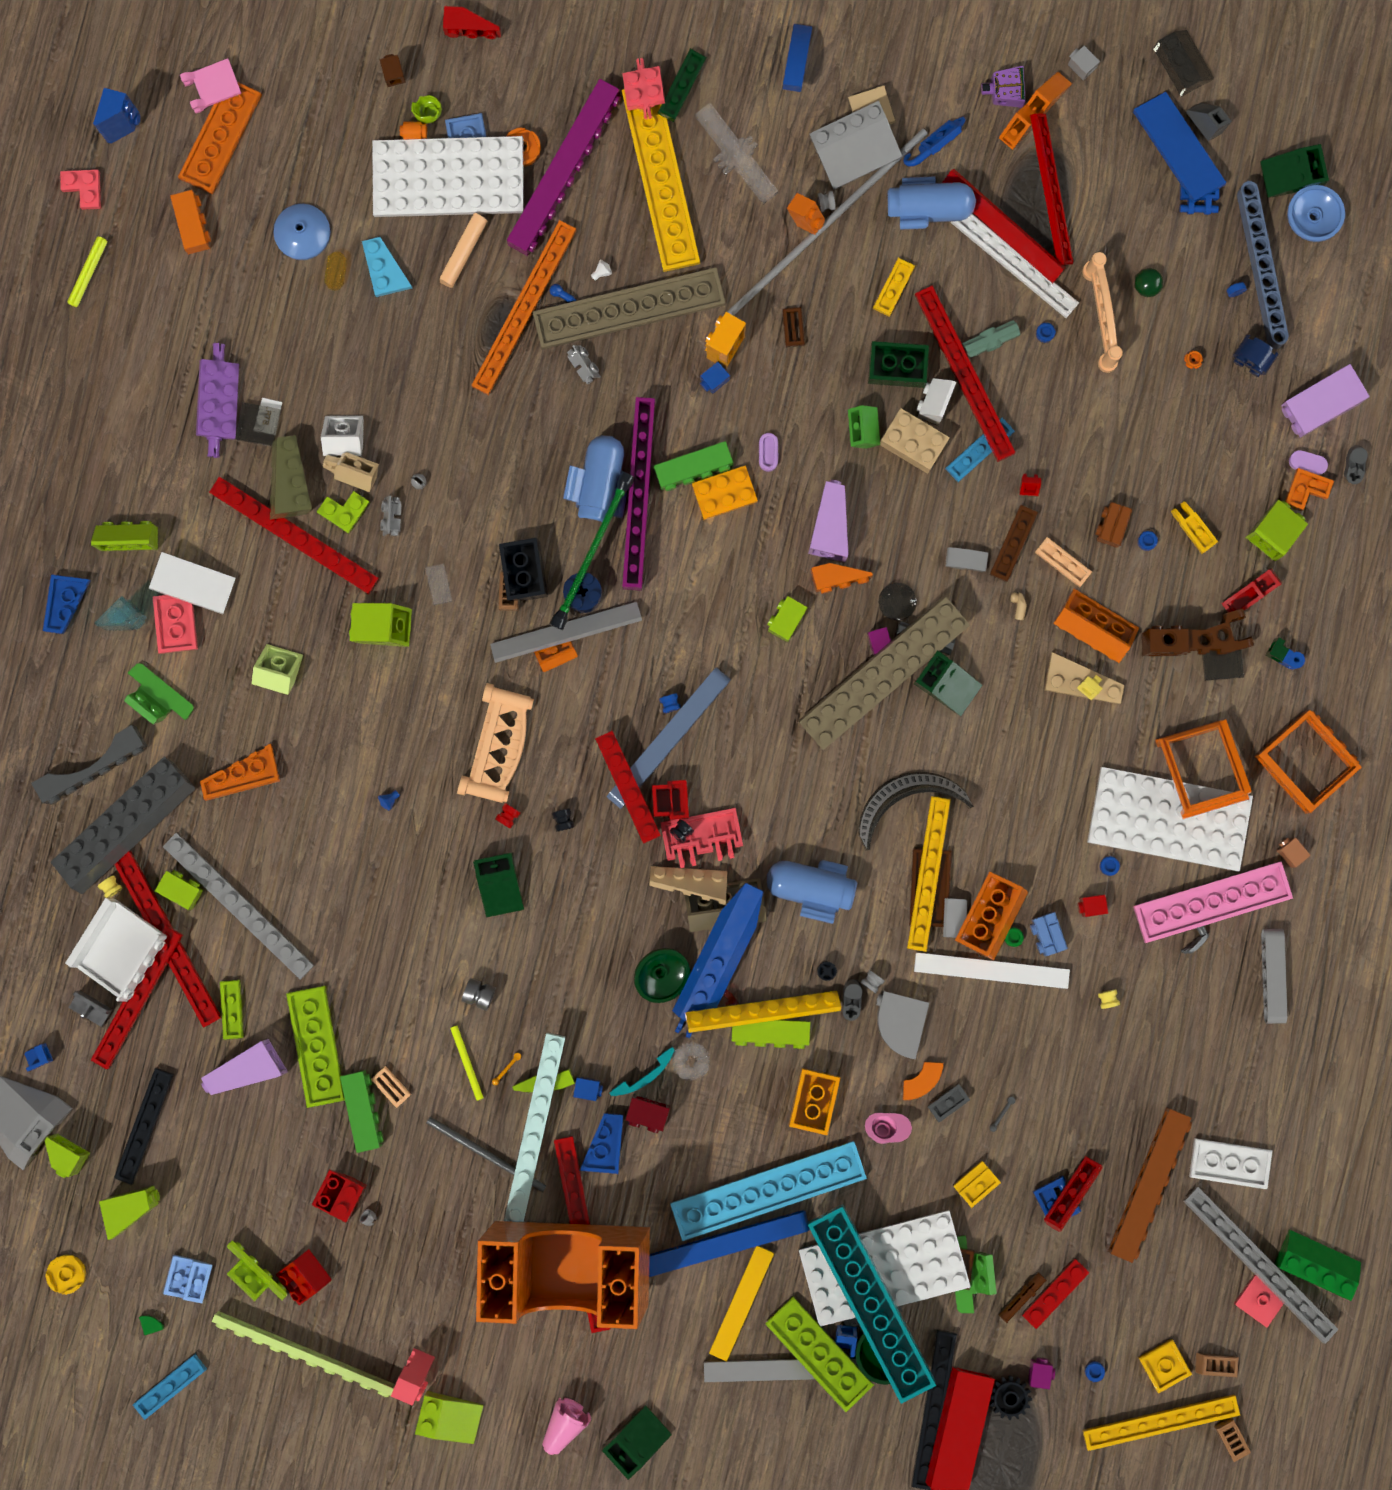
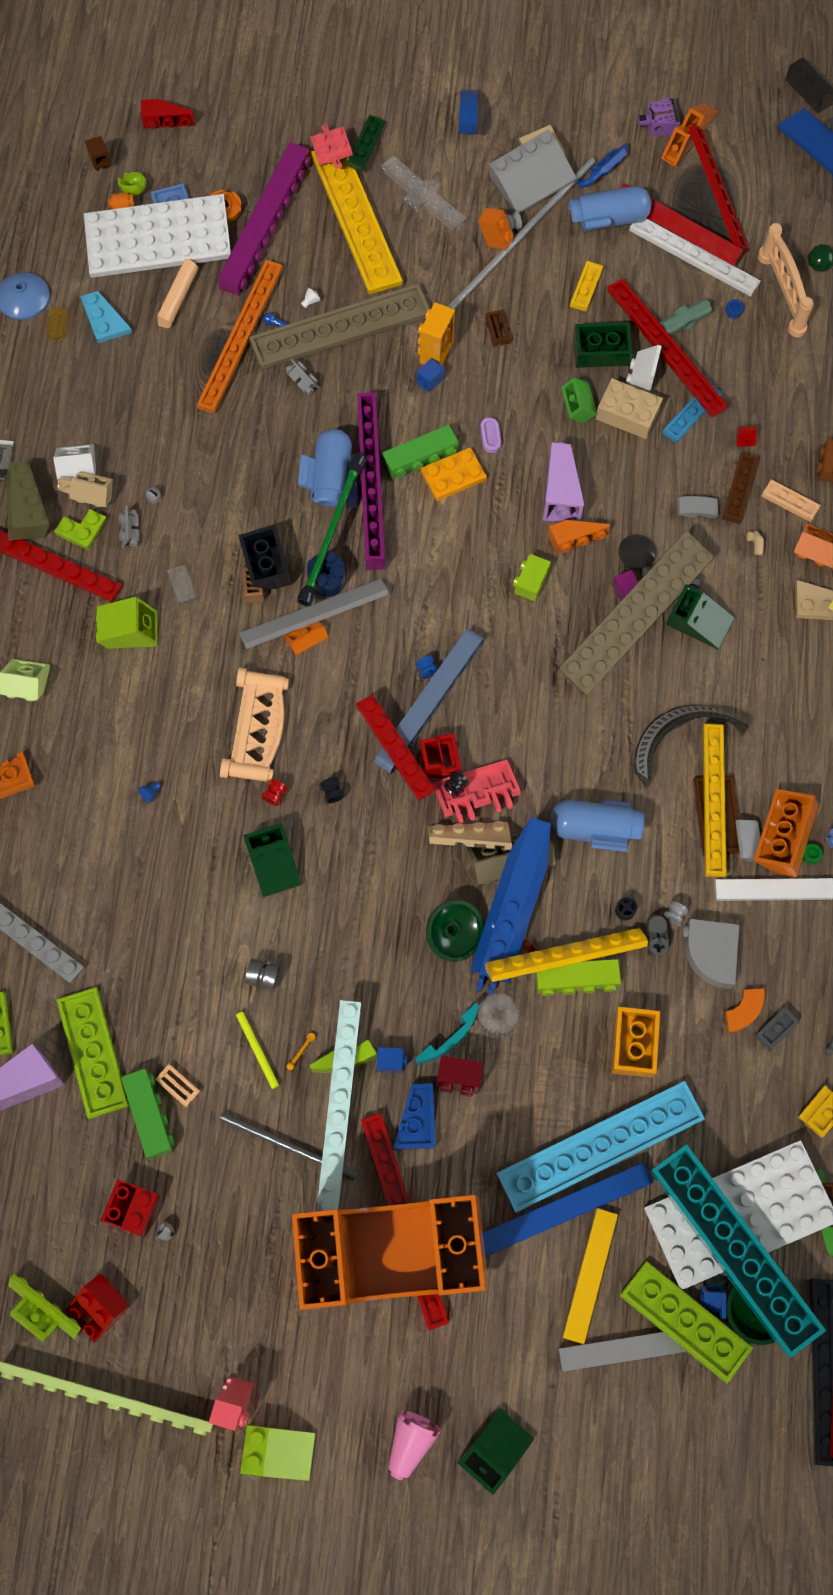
camera: 10 degrees left, 15 degrees down
(888, 1127) = (718, 1060): bright pink piece -> none
(1083, 62) = (725, 92): light grey brick -> none

